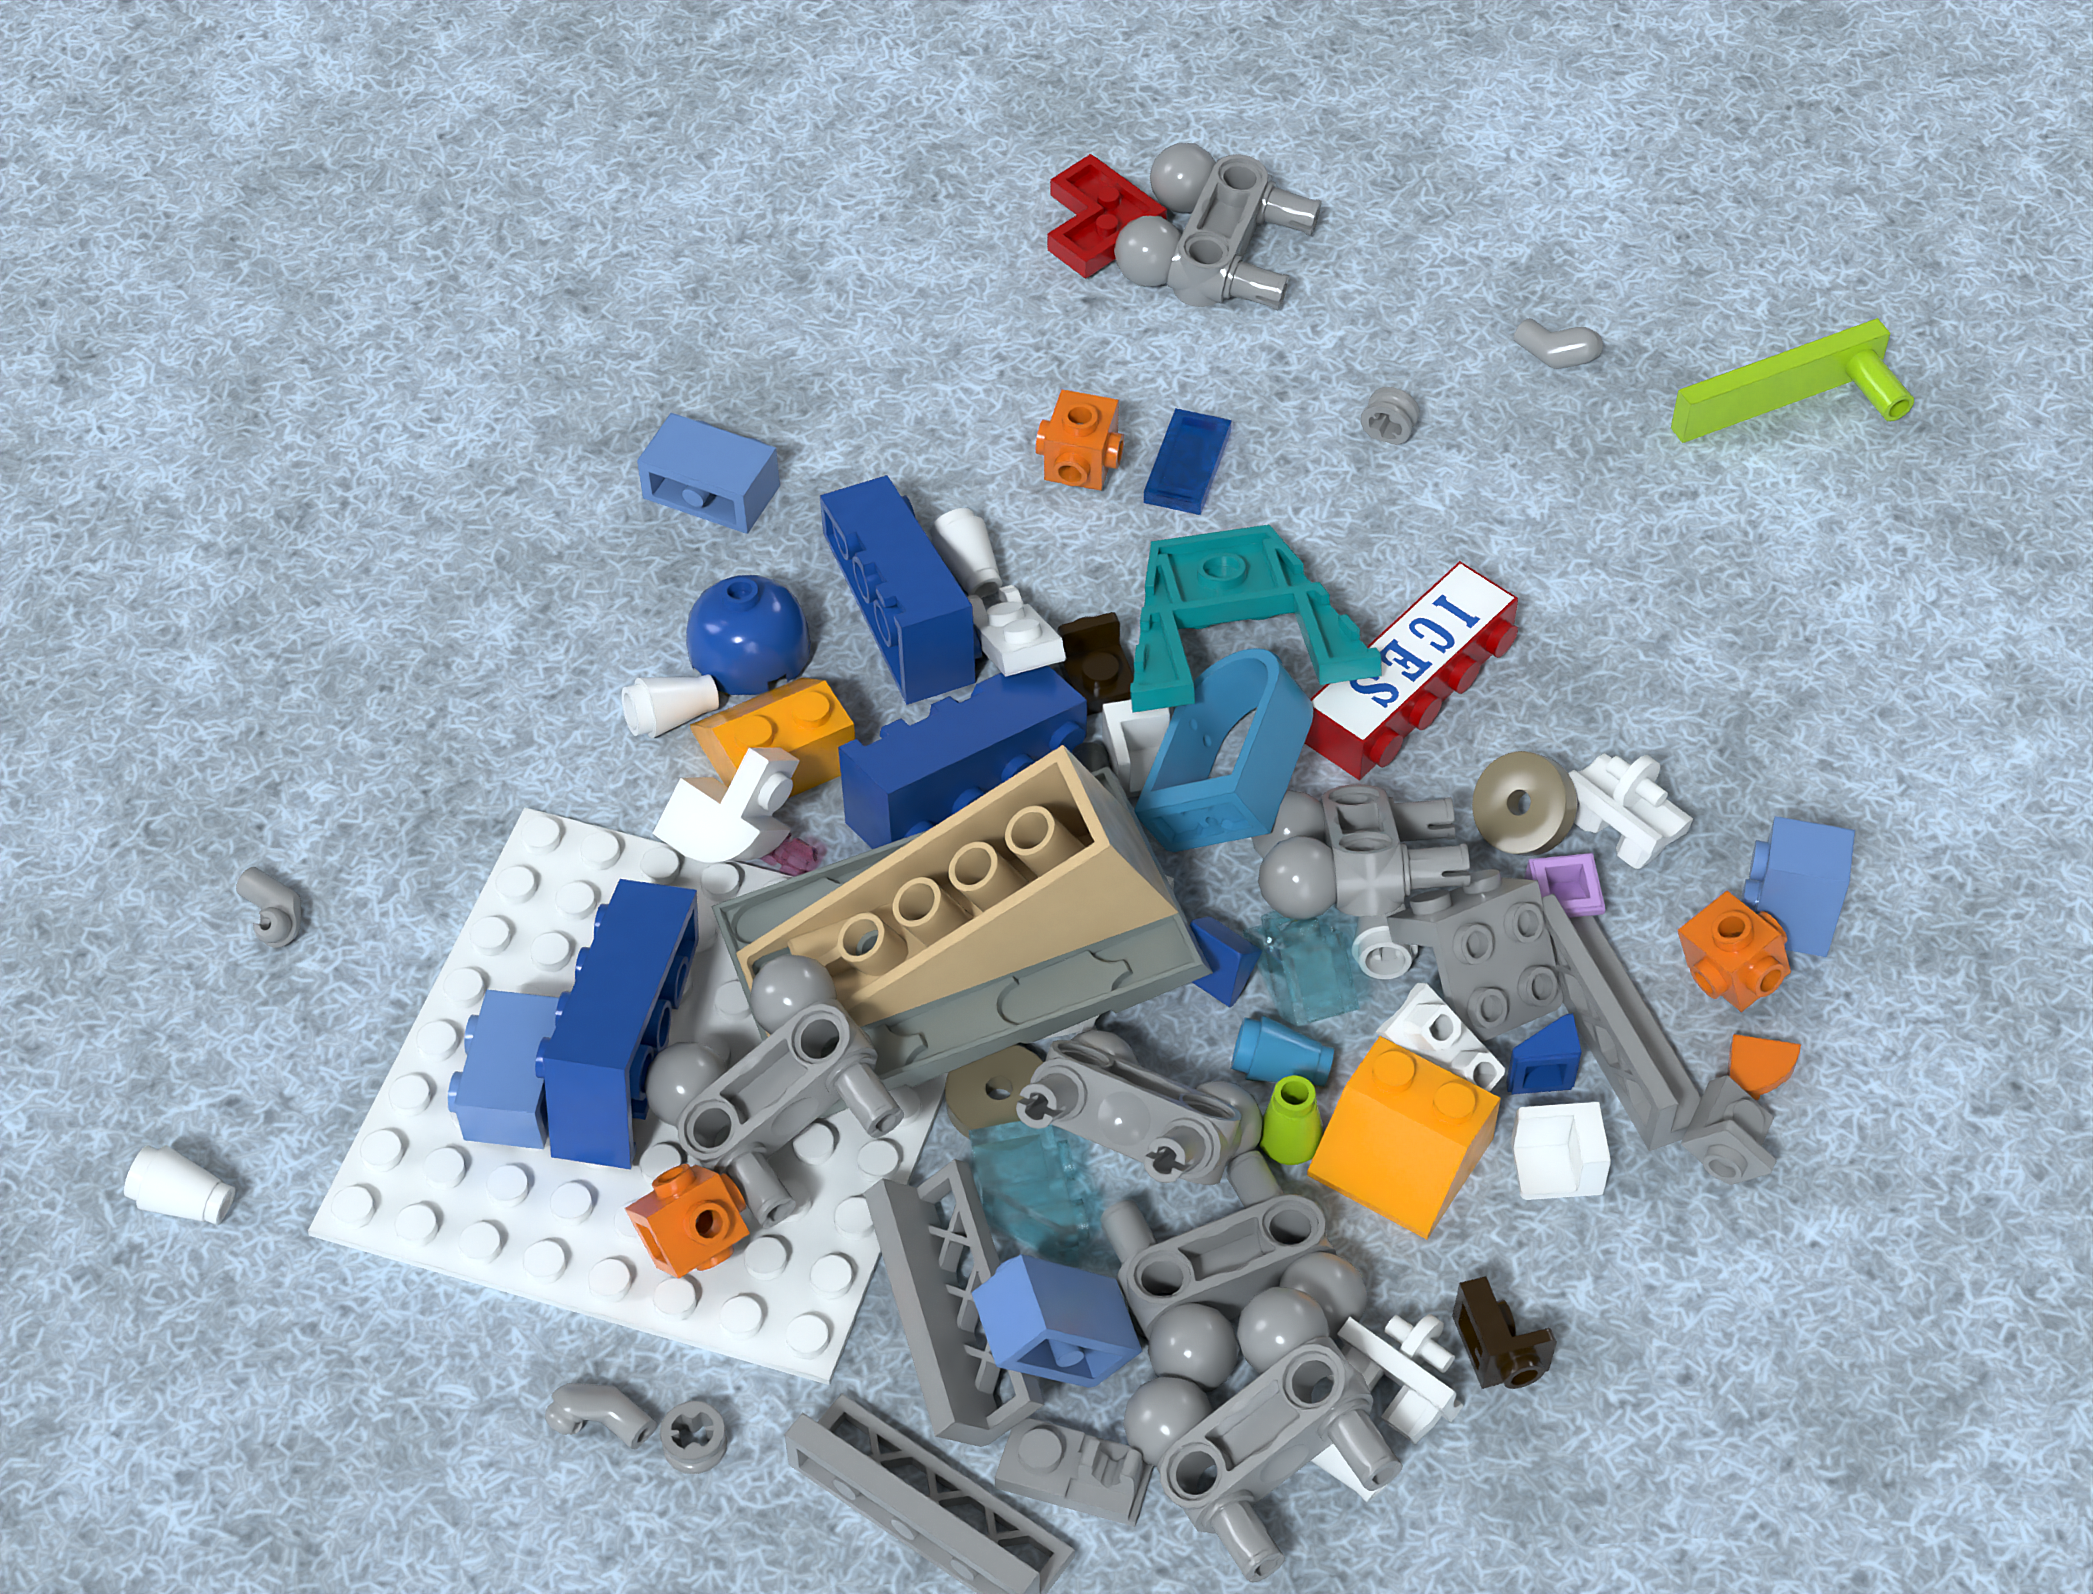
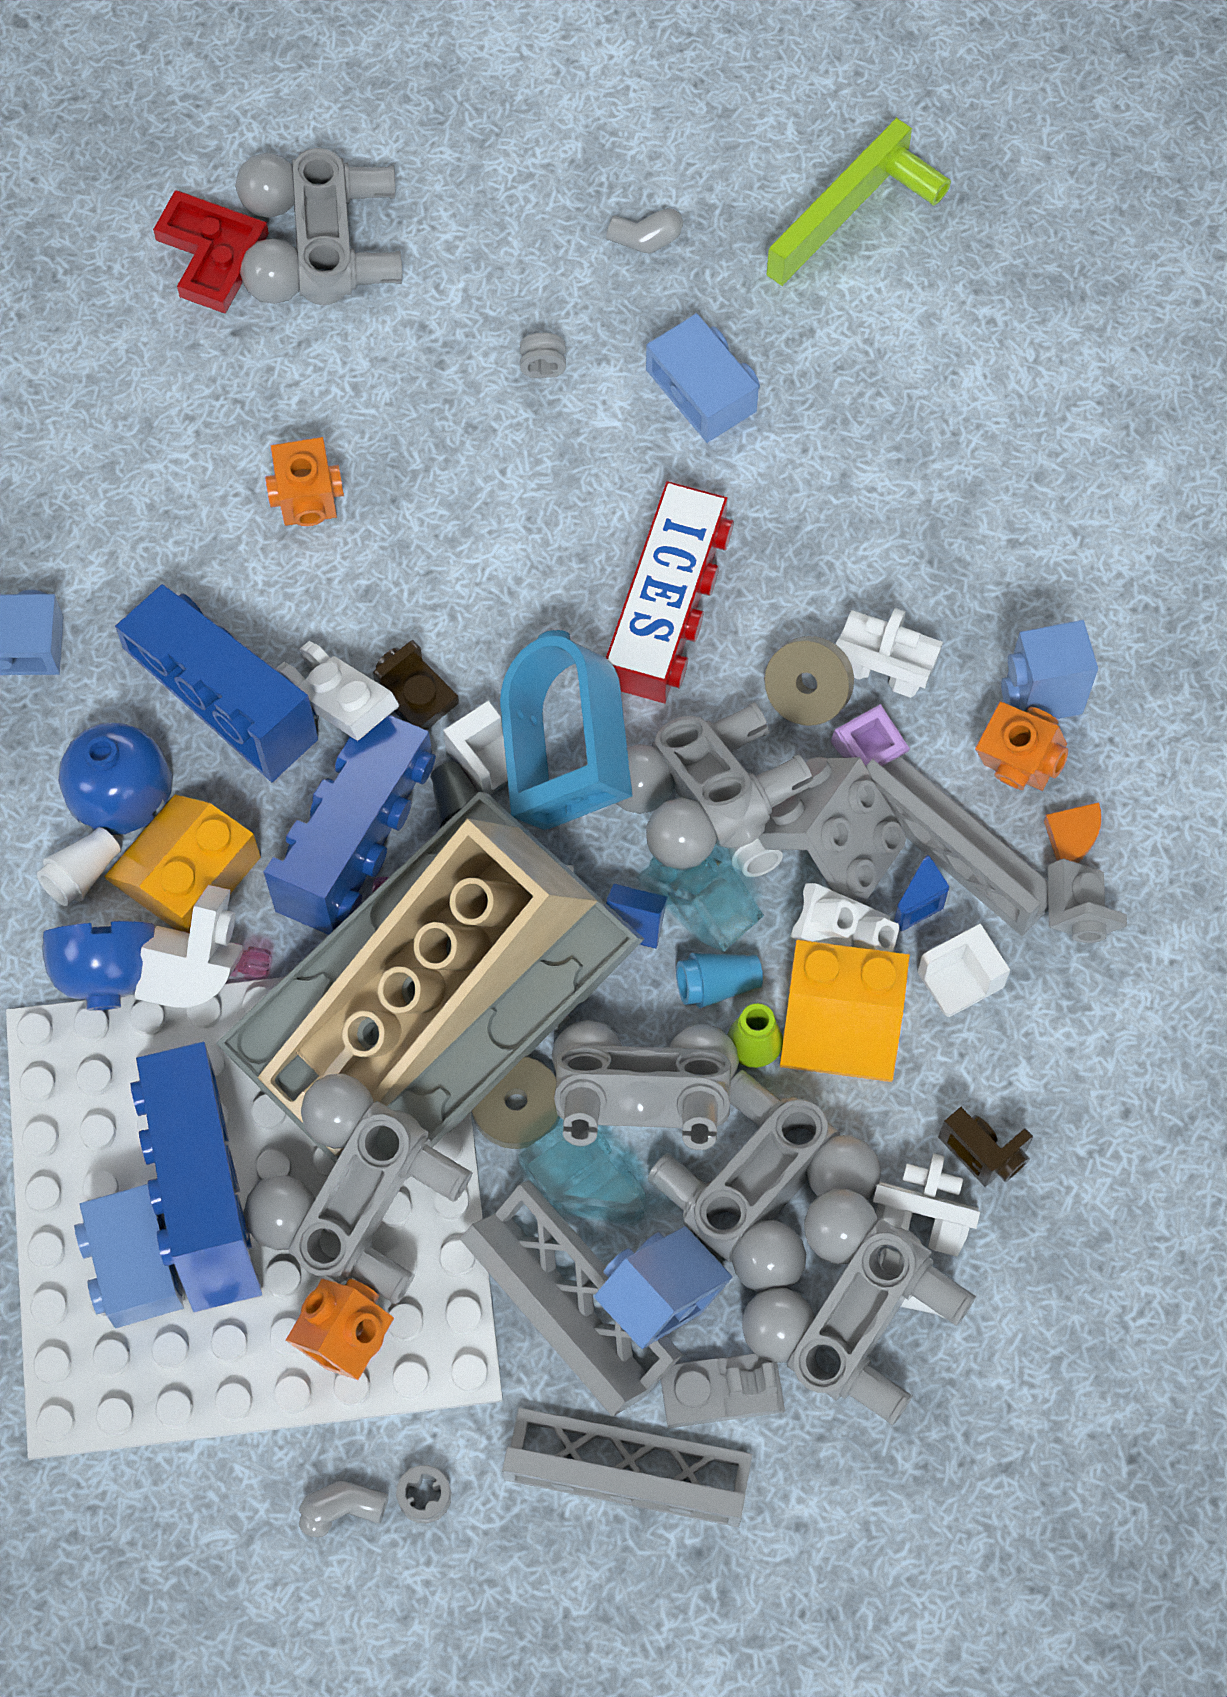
camera: 25 degrees left, 15 degrees up
(631, 781) = (96, 961): none -> blue cylinder
(967, 551) = (257, 624): white cone -> none
(1187, 461) = (394, 461): clear blue tile -> none
(1229, 580) = (485, 567): teal wing -> none
(1551, 489) = (703, 377): none -> medium blue brick

